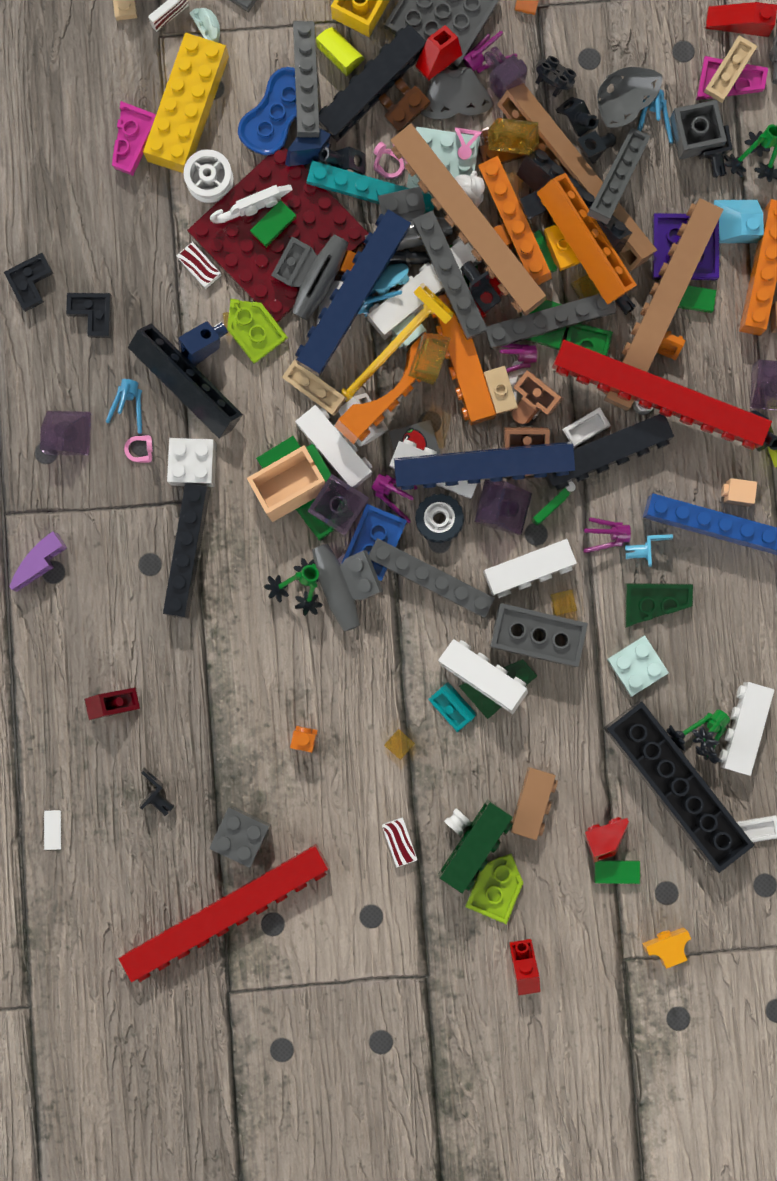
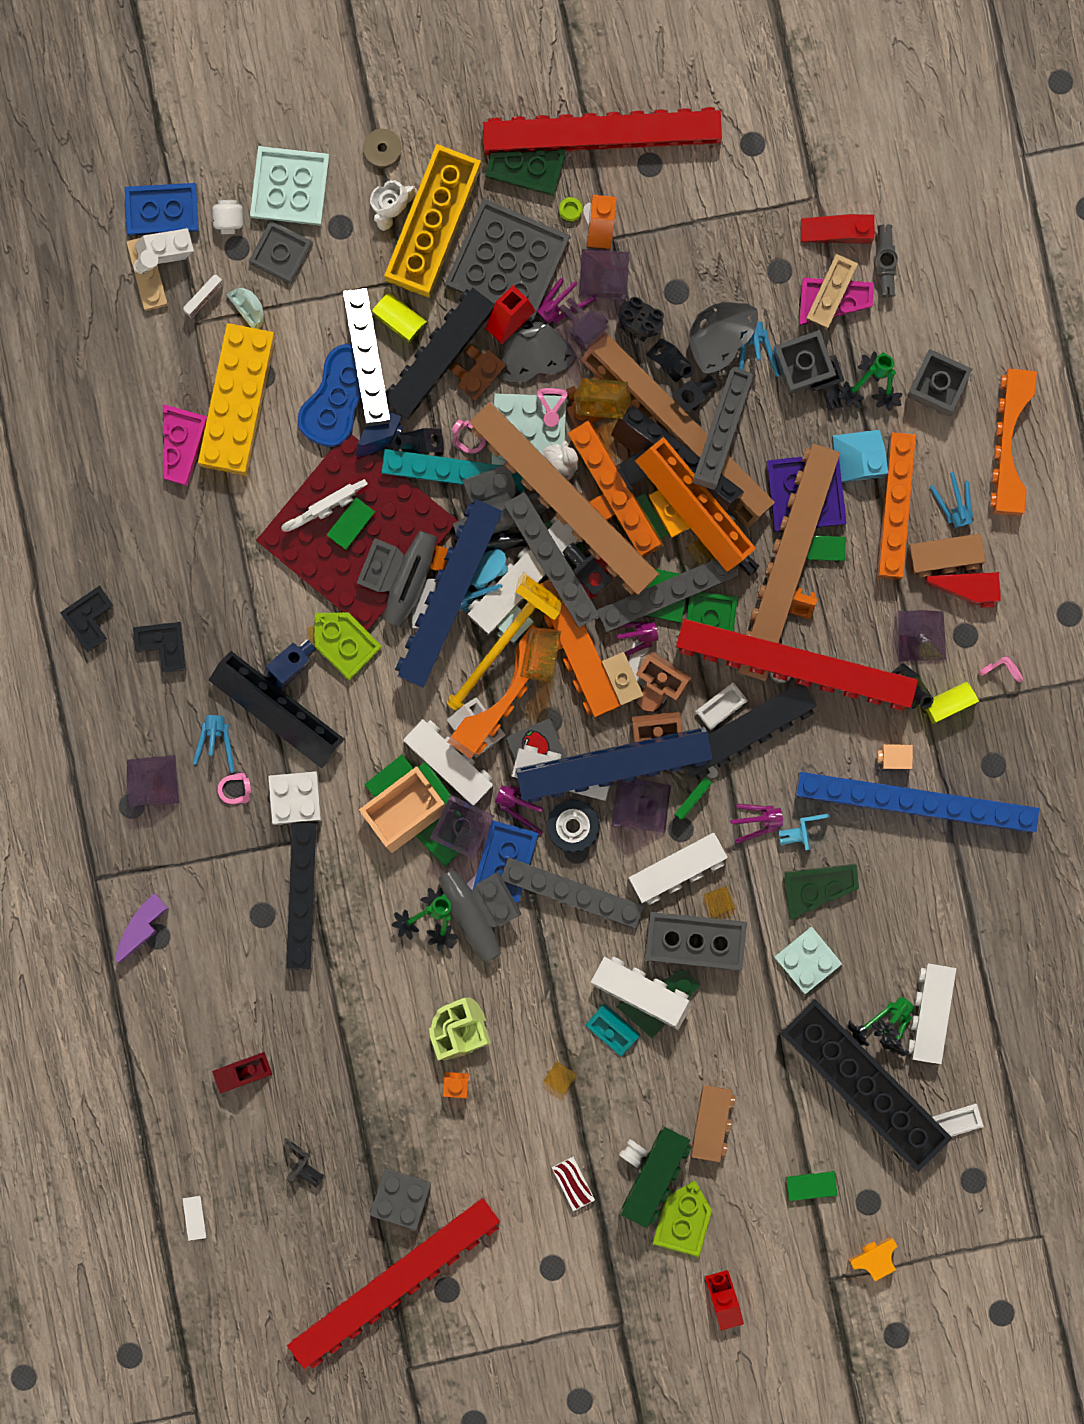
camera: 15 degrees left, 0 degrees up
(198, 265) = (273, 577): tile -> none
(209, 188) = (275, 492): white wheel -> none
(312, 688) = (458, 1029): none -> yellowish green brick
(314, 388) = (419, 700): tan plate -> none
(527, 35) = (604, 274): none -> clear purple slope
(606, 839) = (795, 1152): red slope -> none

